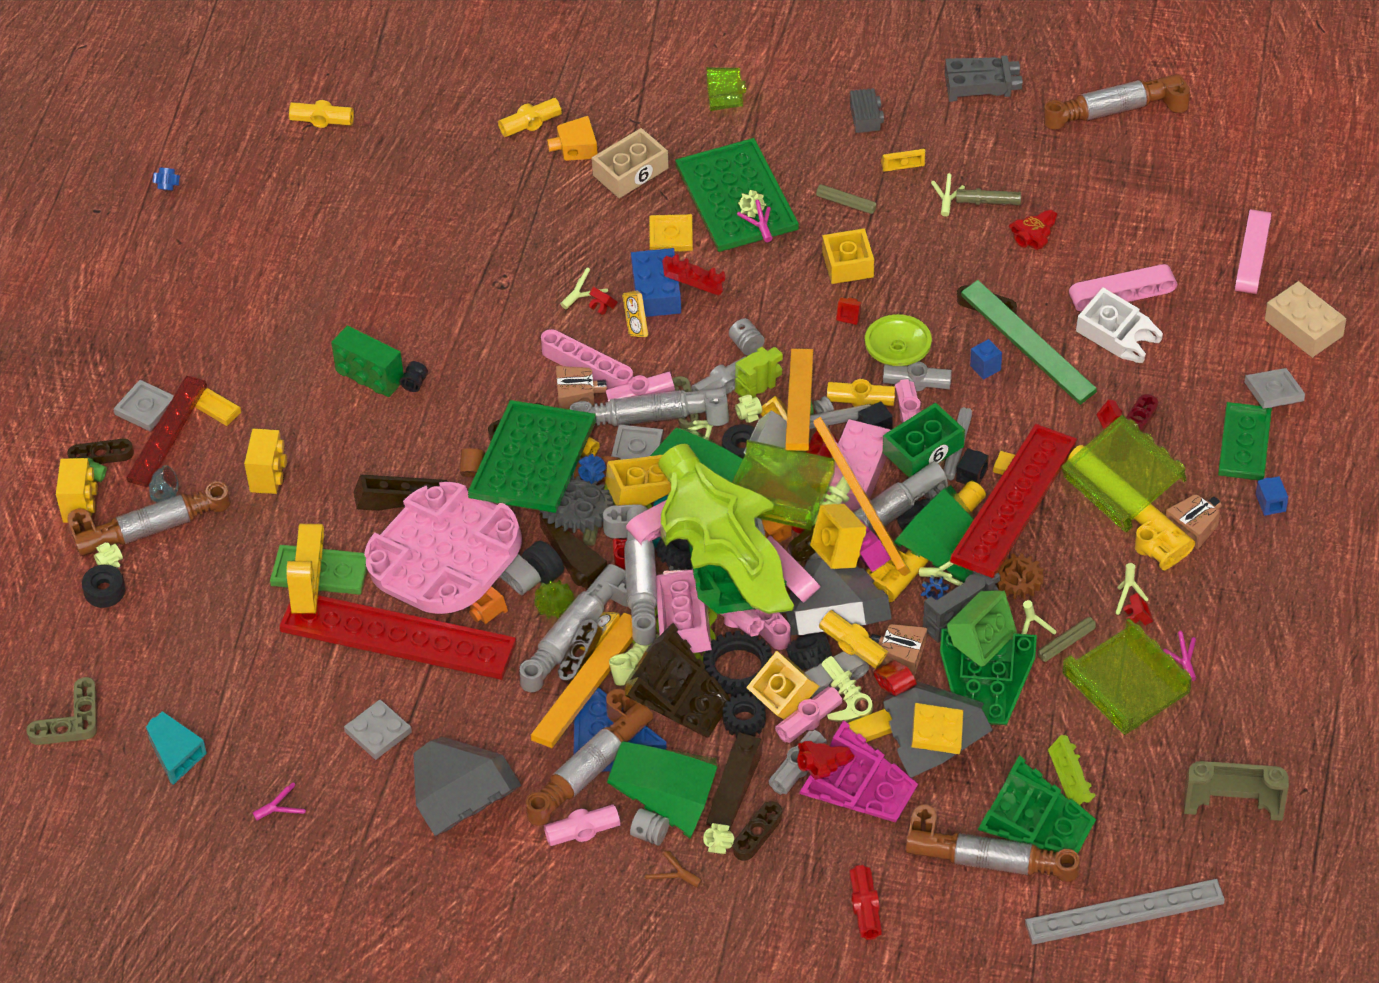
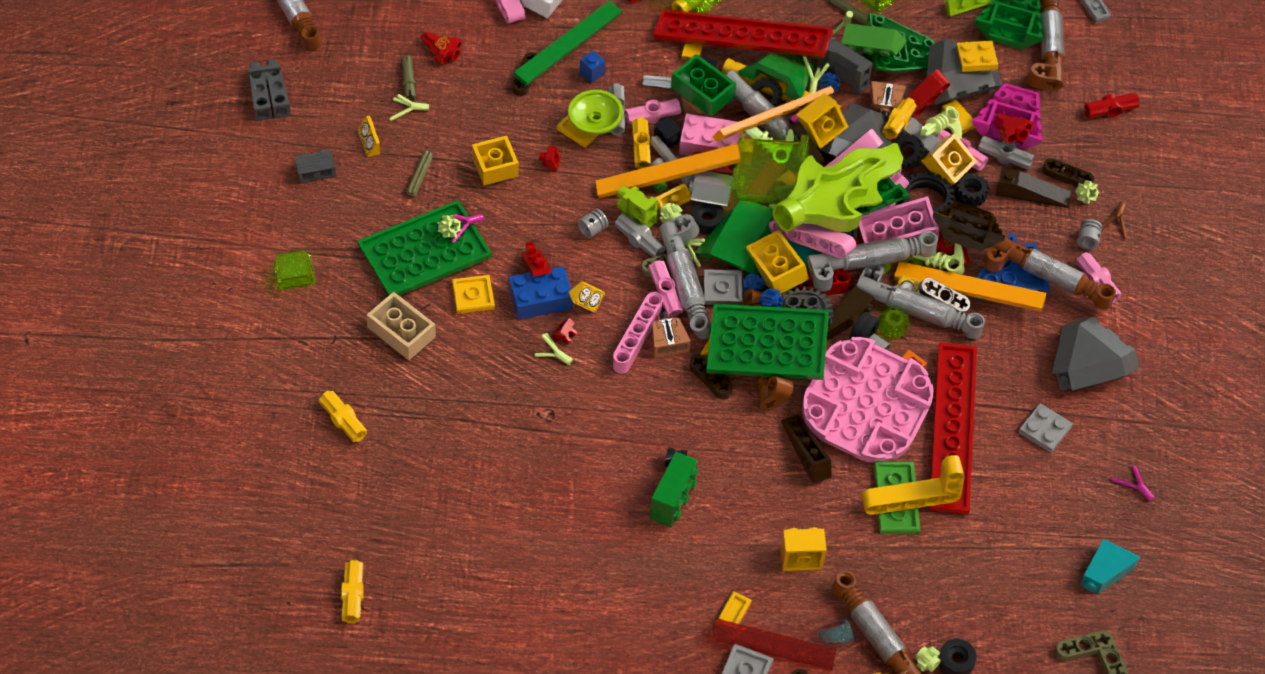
camera: 105 degrees left, 5 degrees up
(574, 140) = (370, 375): light orange torso -> none
(664, 781) = (1048, 222): green wedge -> none

